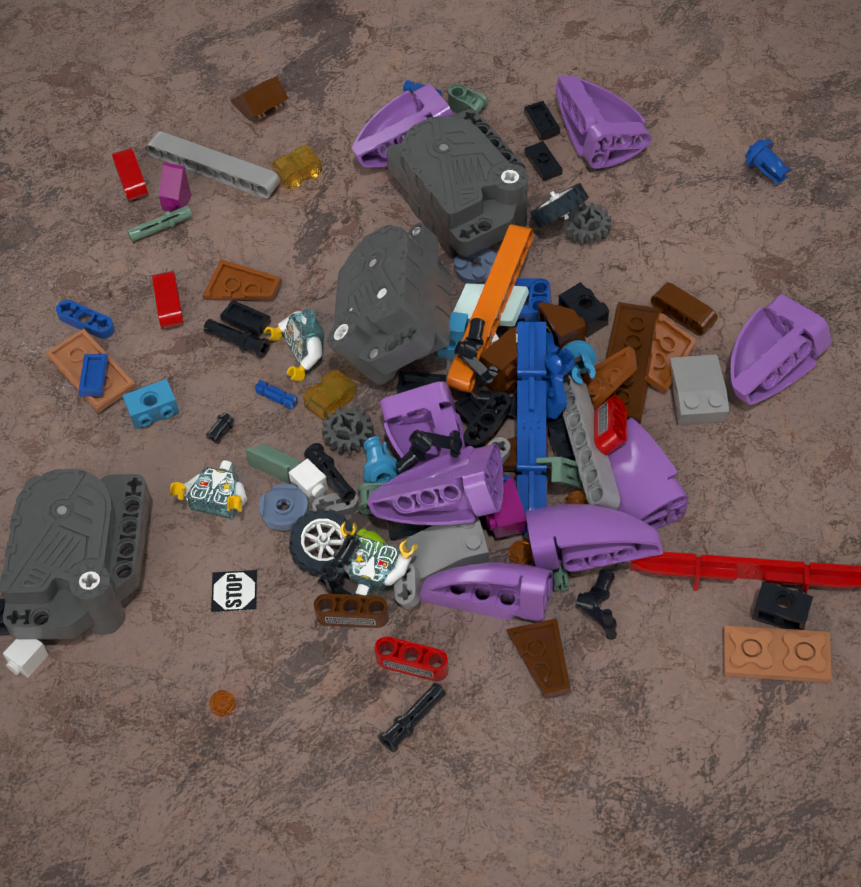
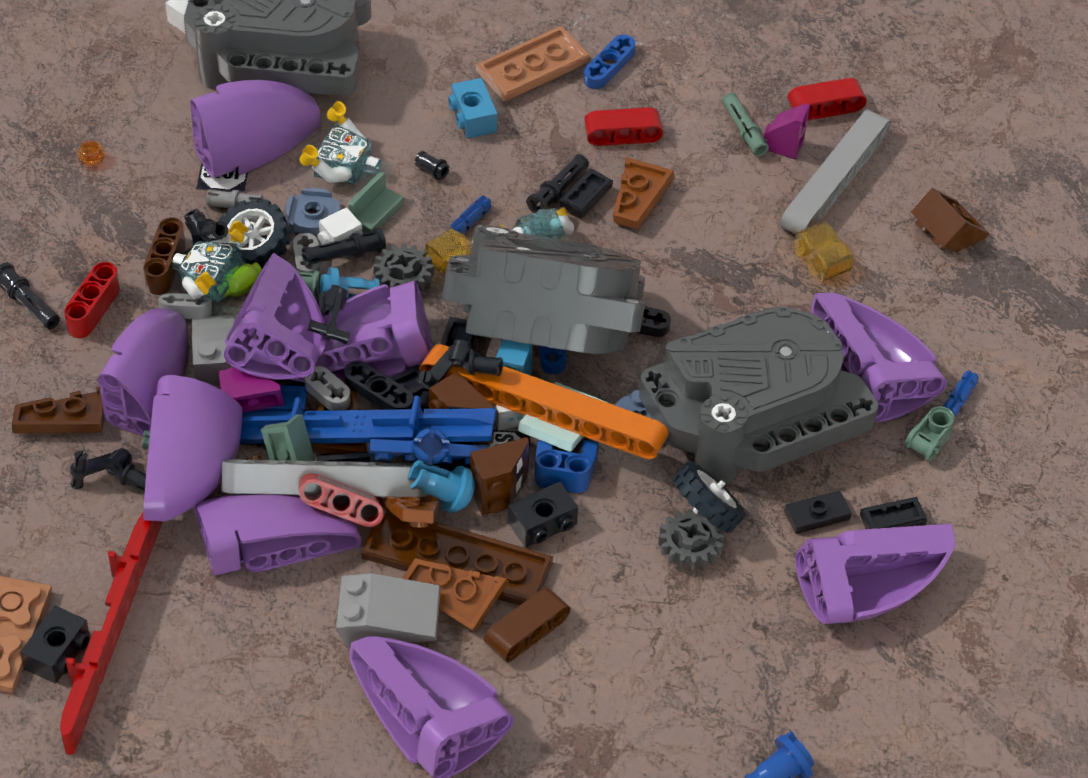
camera: 90 degrees right, 5 degrees down
(93, 375) = (518, 59): blue tile -> none
(206, 567) = (250, 124): none -> medium lavender panel
(275, 569) = (229, 199): none -> light grey pin

